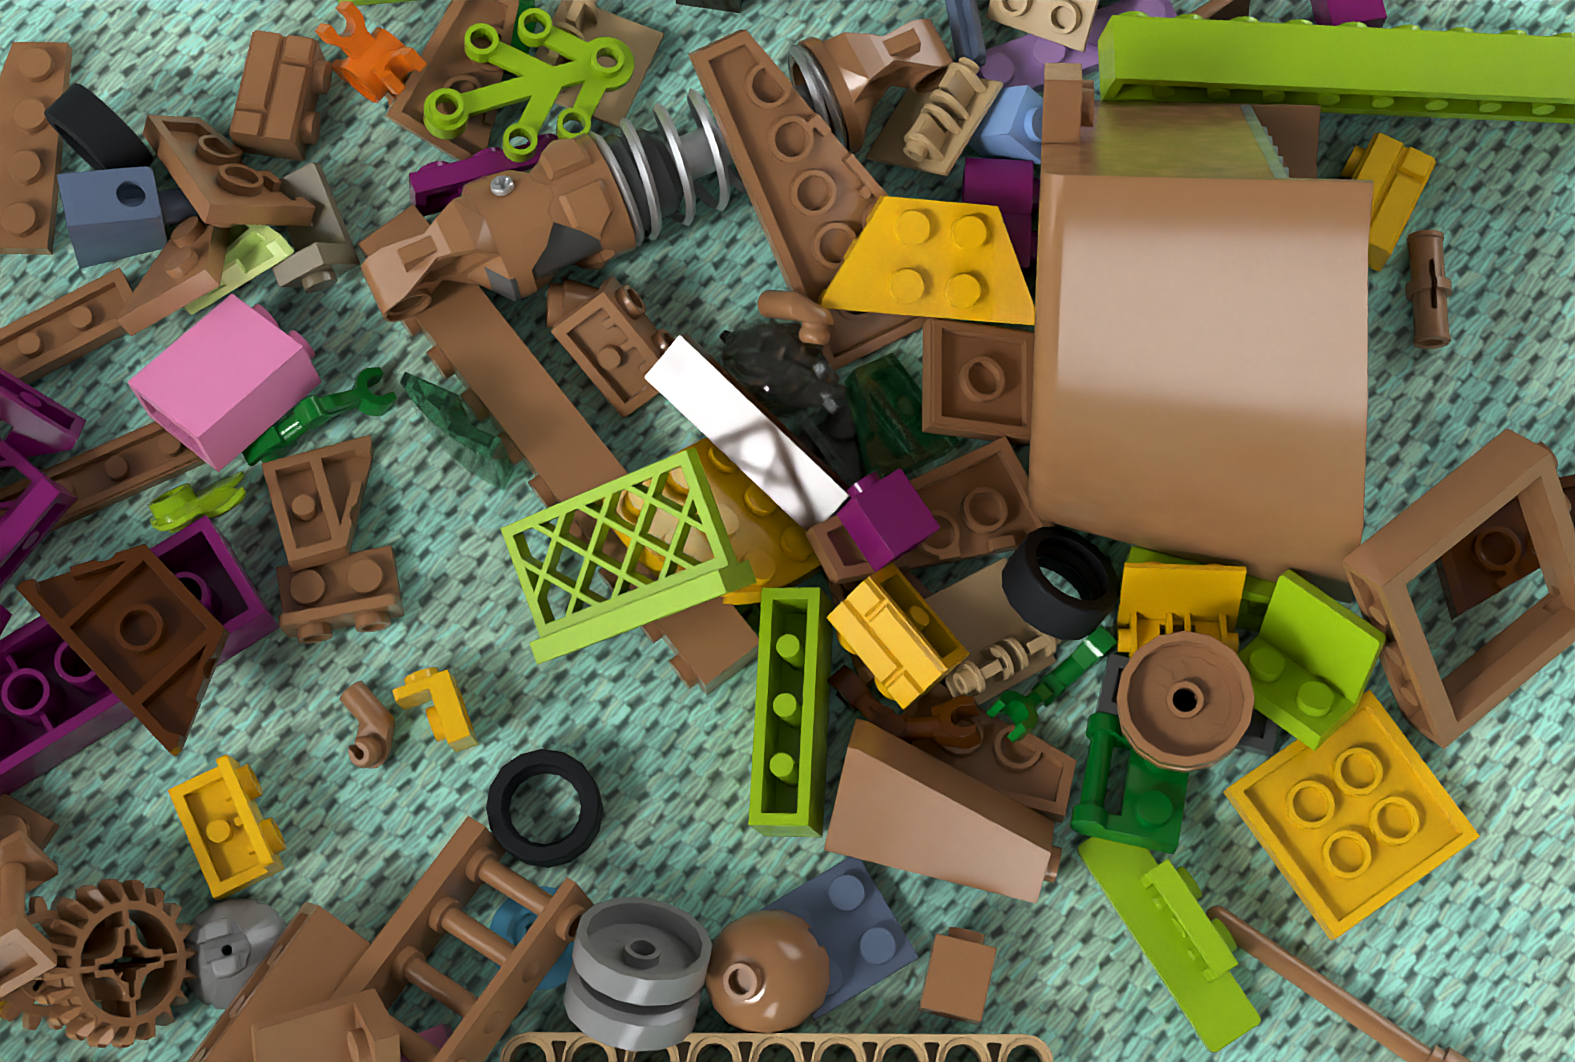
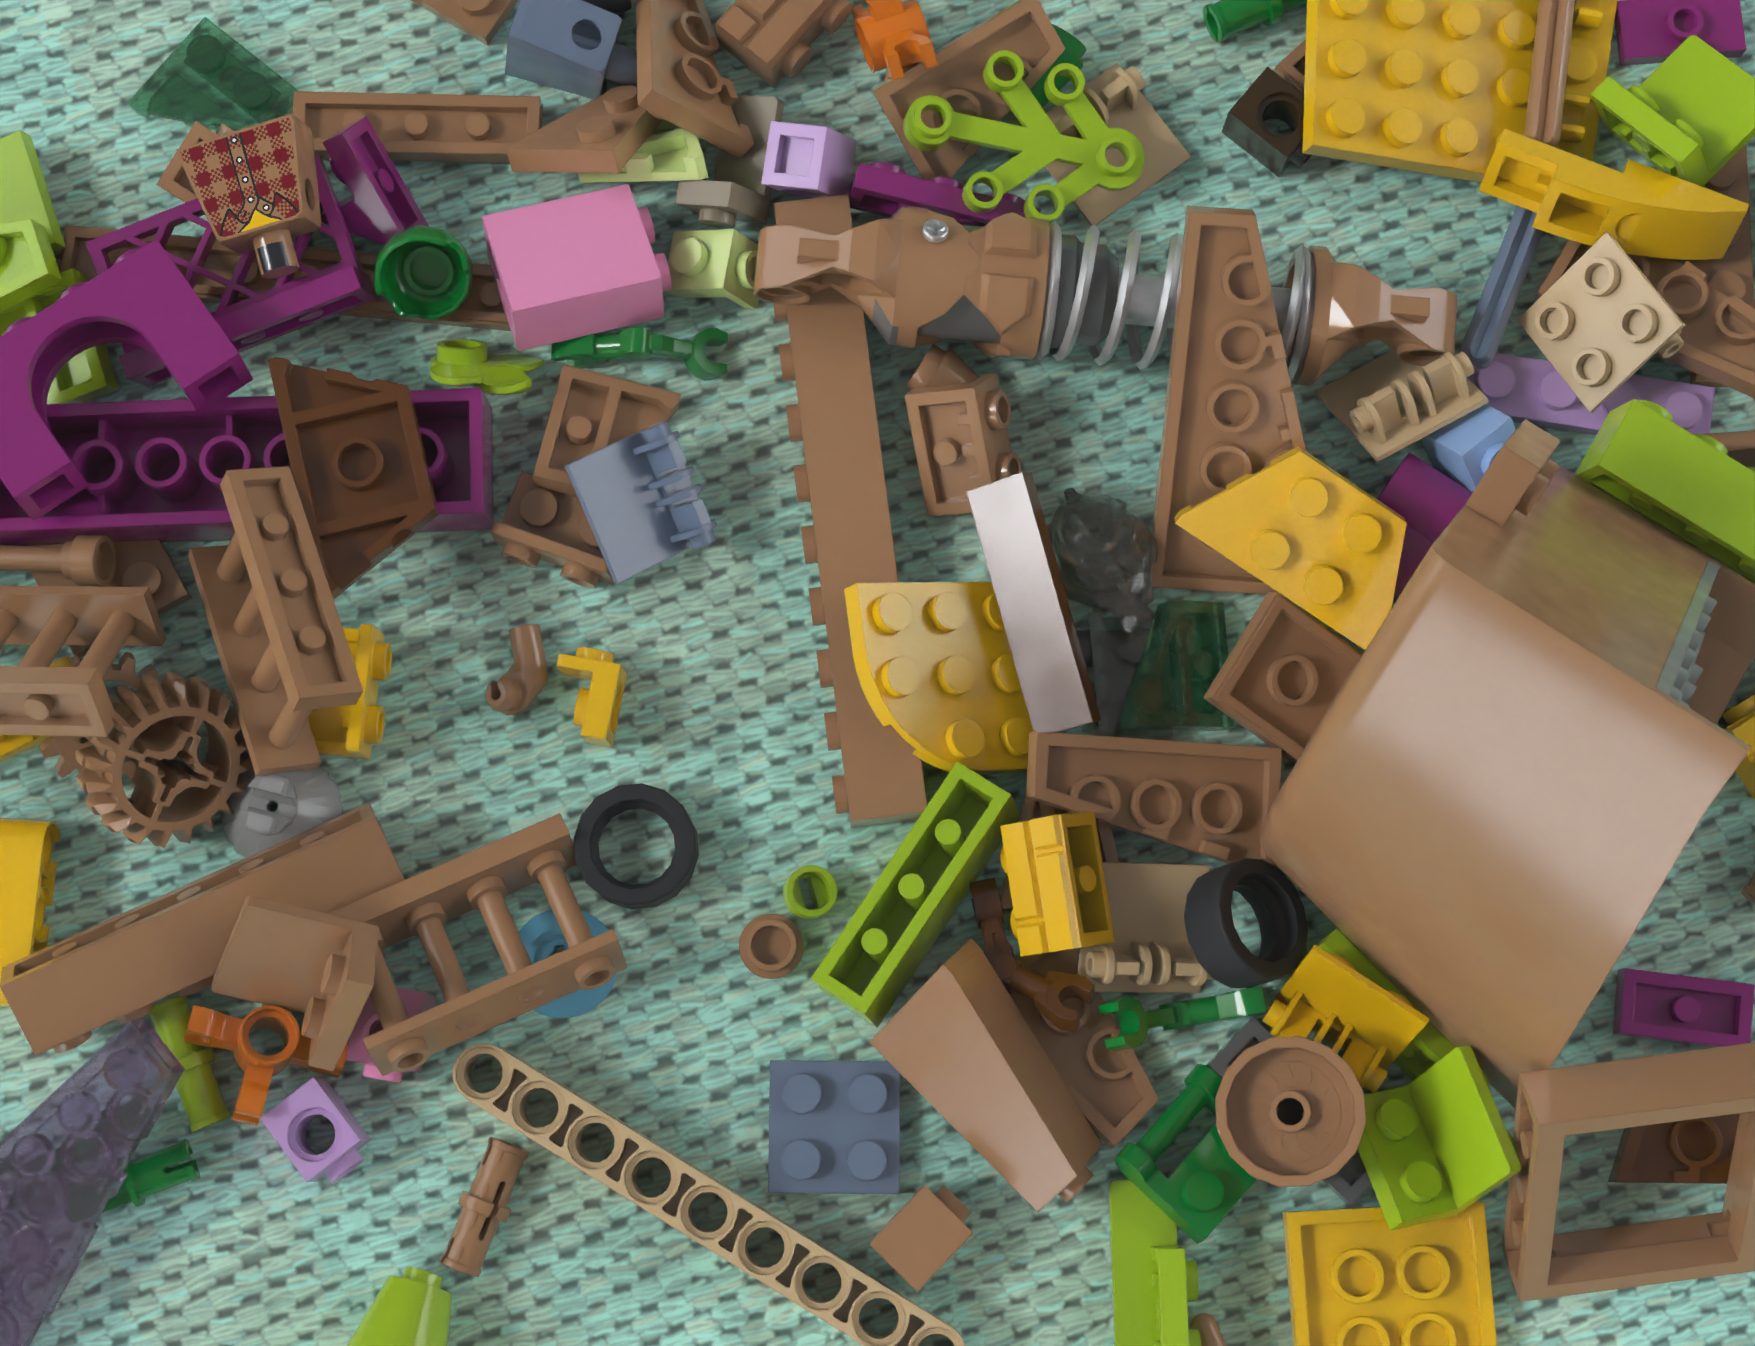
camera: 30 degrees right, 5 degrees up
(105, 454) = (424, 273): none -> green hair
(163, 774) = (274, 620): none -> medium nougat fence
(339, 320) = (713, 265): none -> yellowish green bracket
(365, 196) = (808, 160): none -> lavender brick
(389, 532) = (641, 501): none -> sand blue hinge
(450, 427) = (758, 435): clear green slope -> none
(637, 973) = (627, 1055): light grey wheel -> none
(652, 599) = (841, 714): lime fence -> none
(699, 824) = (771, 946): none -> medium nougat plate
(713, 756) = (821, 890): none -> lime hinge
(767, 972) = (748, 1123): medium nougat cylinder -> none
(796, 307) = (1148, 505): medium nougat arm -> none
(886, 518) = (1112, 766): magenta brick -> none
(1422, 455) = (1683, 1008): none -> magenta plate

